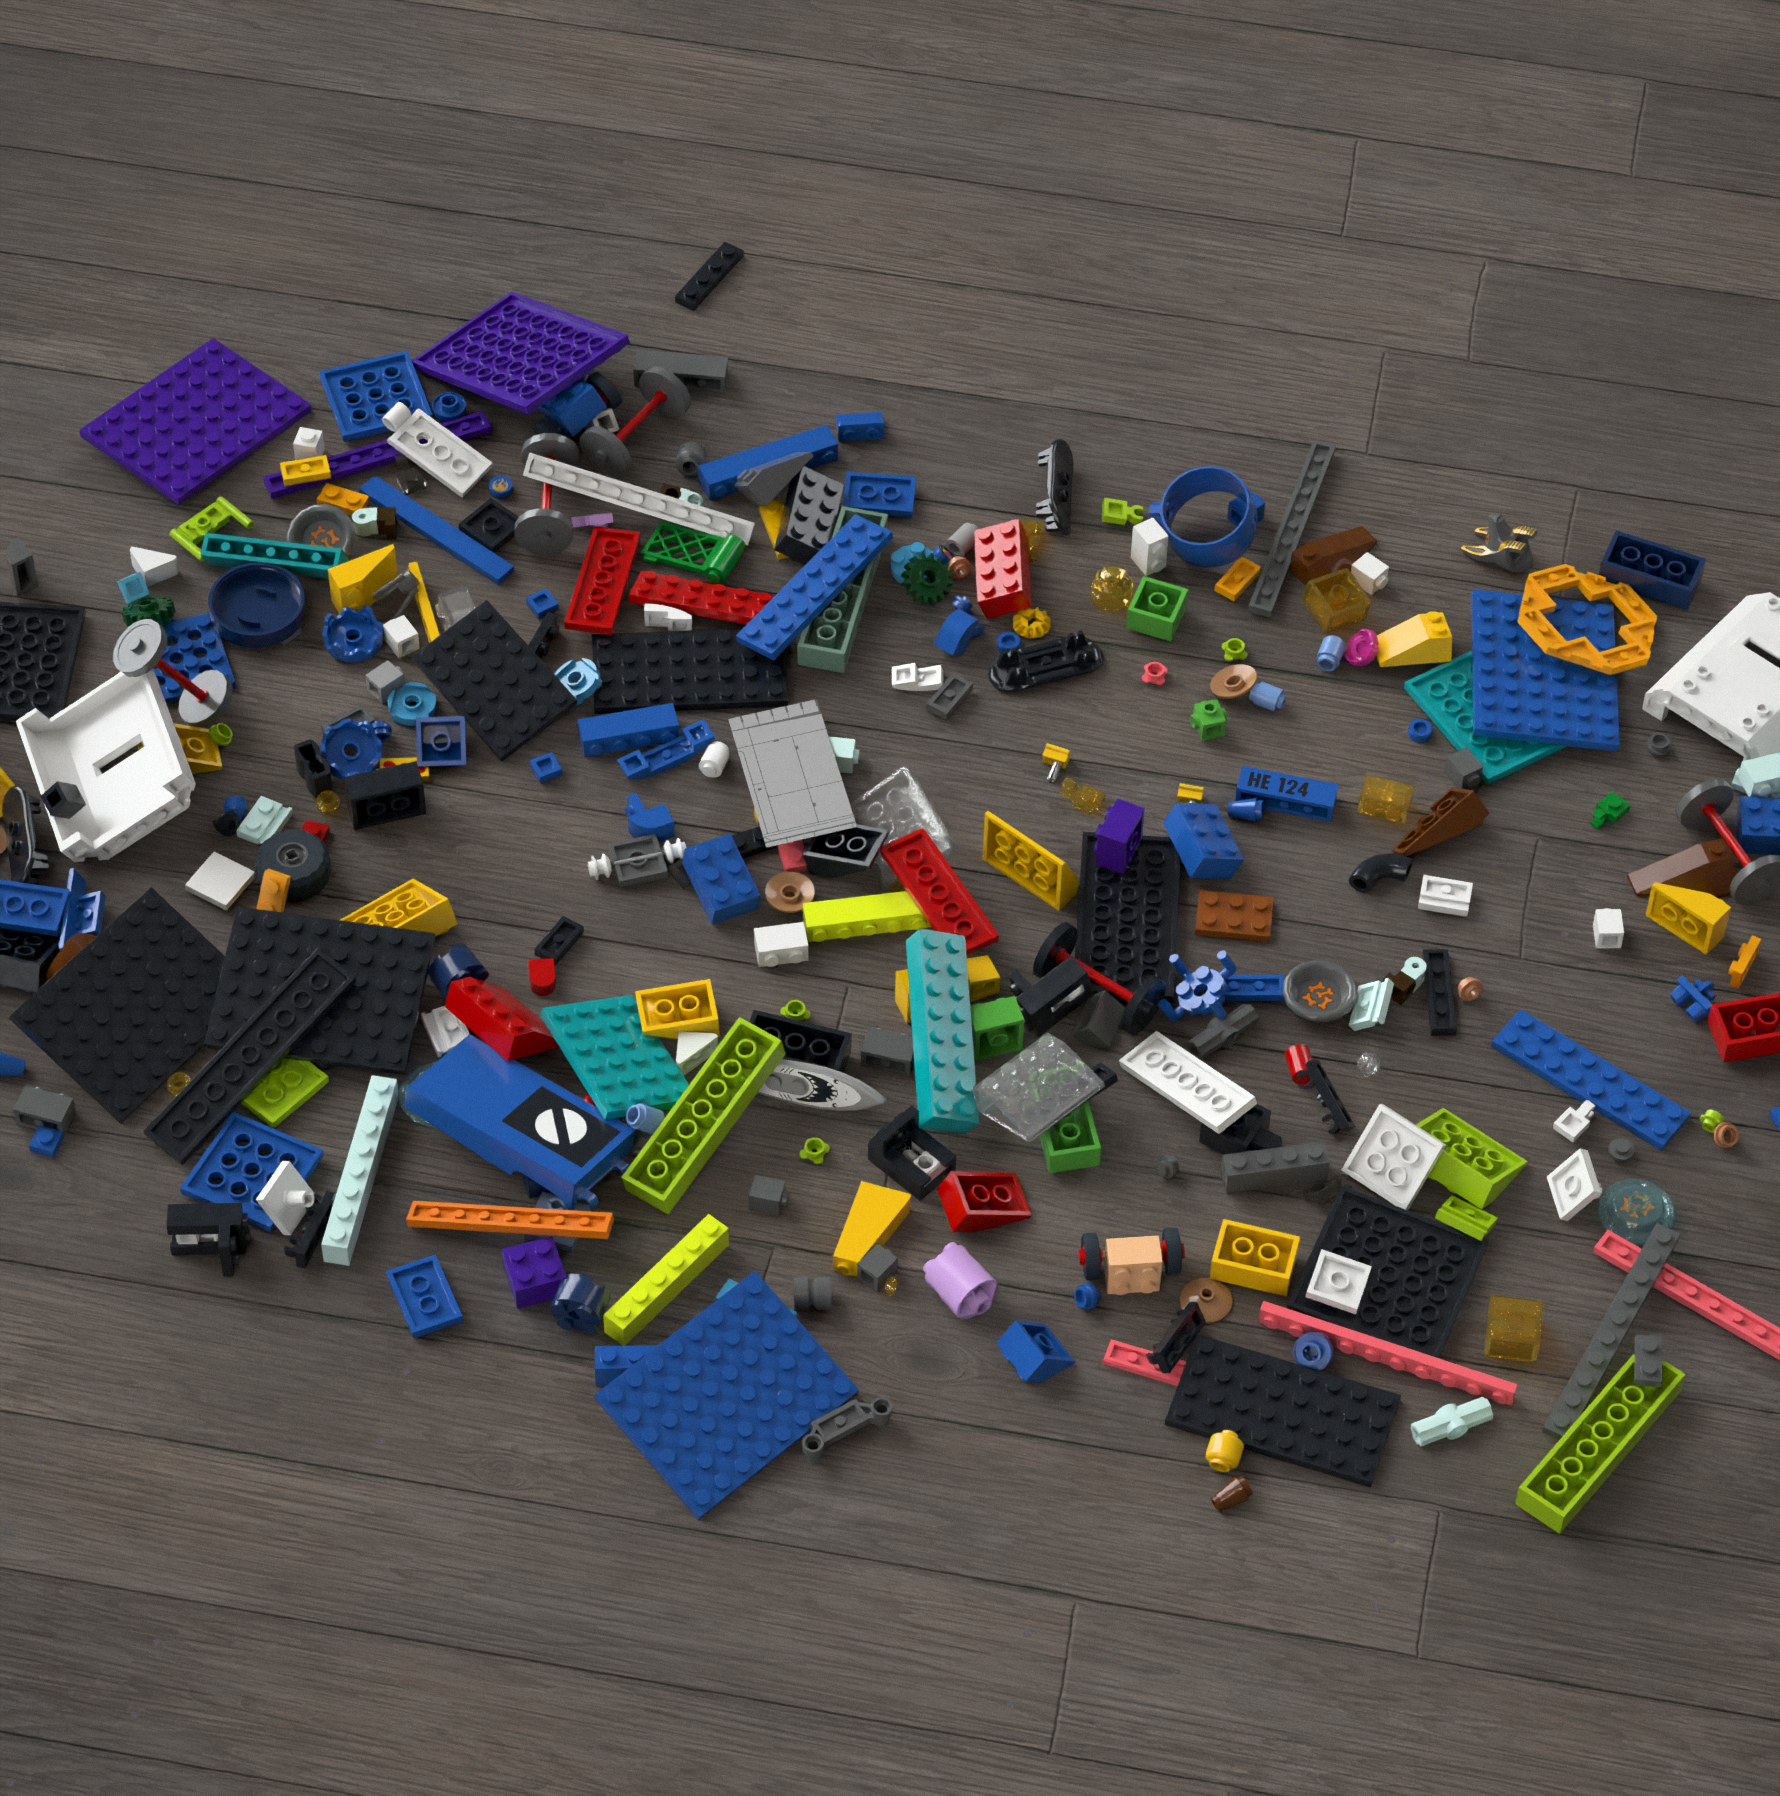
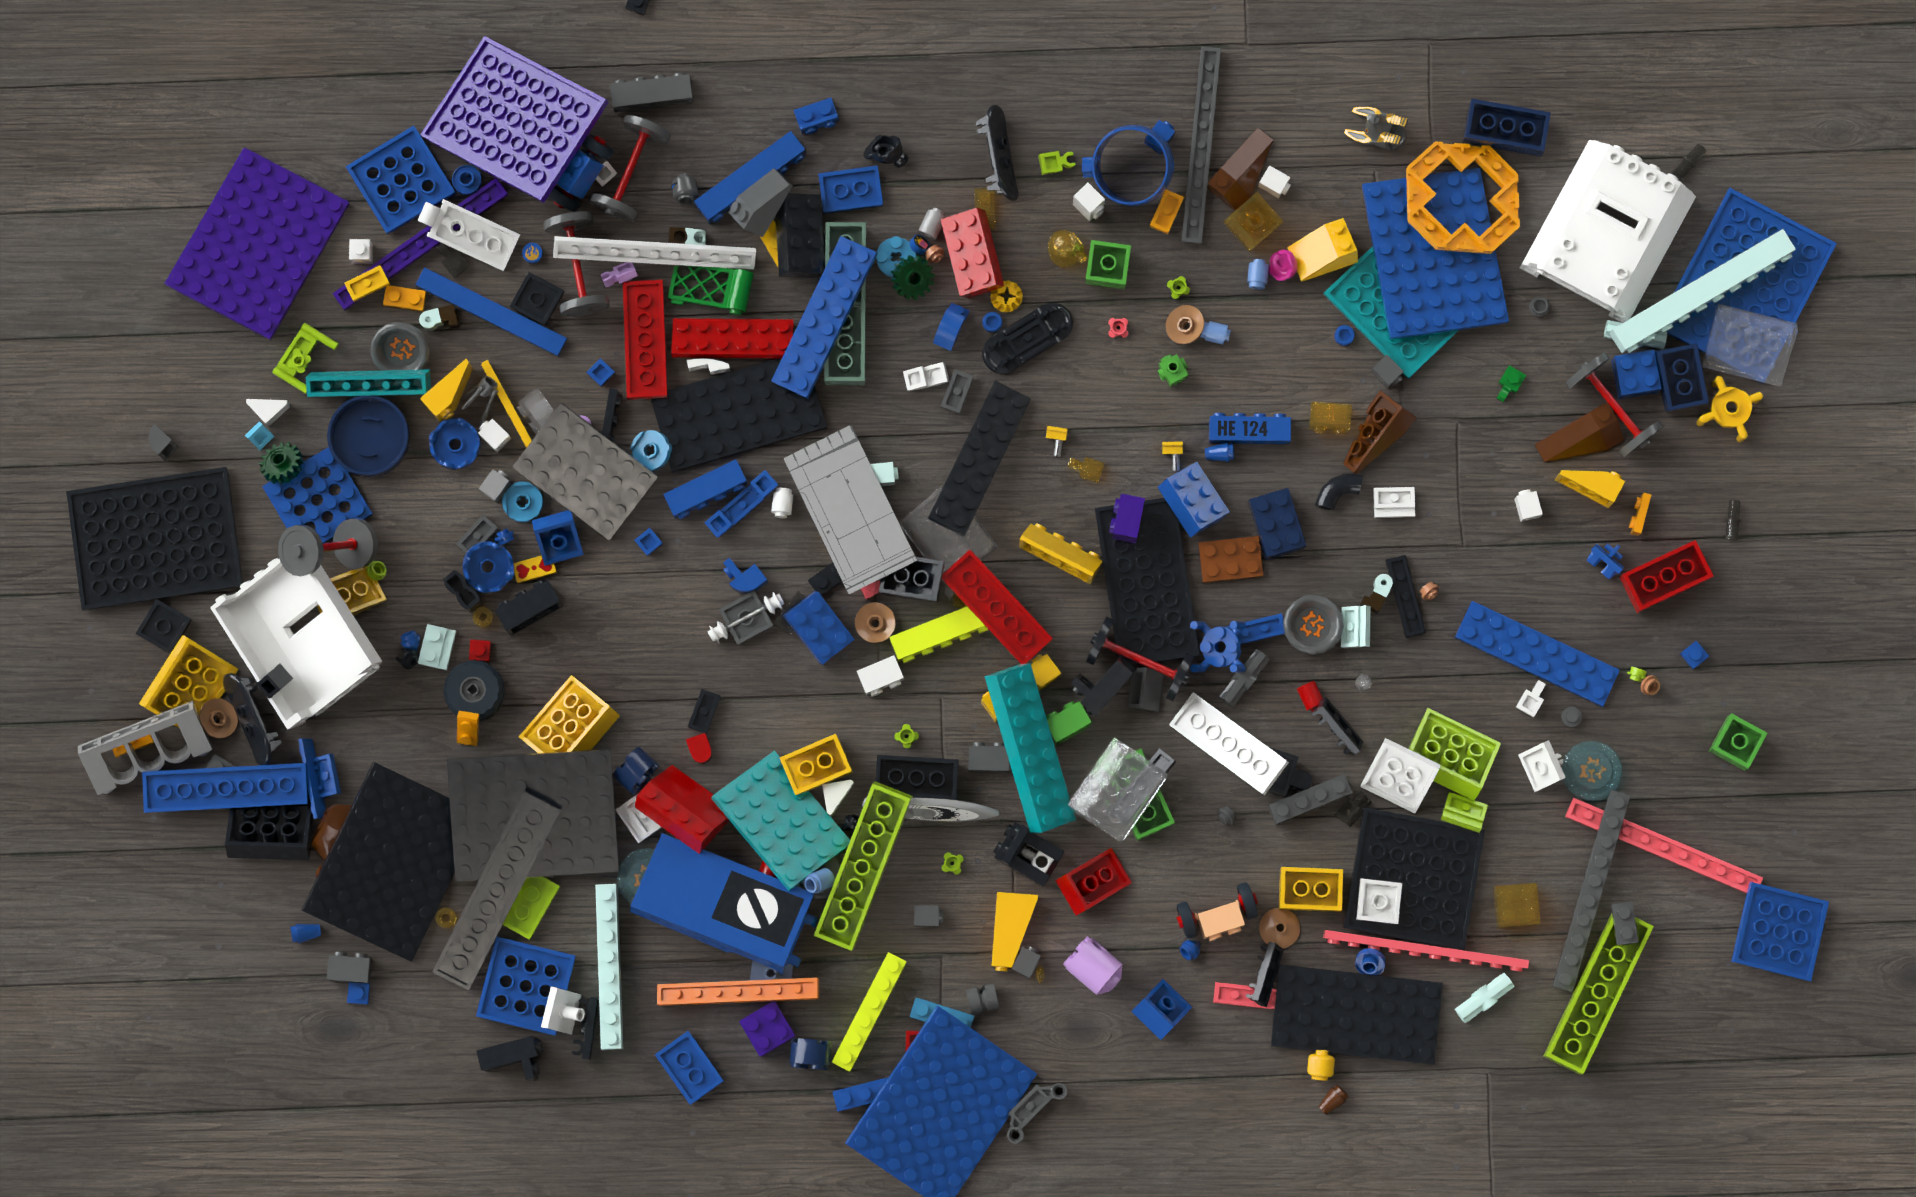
camera: 10 degrees left, 30 degrees up
(220, 881) = (419, 716): white tile -> none
(932, 467) = (886, 150): none -> black hair
(957, 753) = (979, 458): none -> black plate
(963, 604) = (946, 294): blue plate -> none
(1298, 887) = (1277, 523): none -> dark blue brick

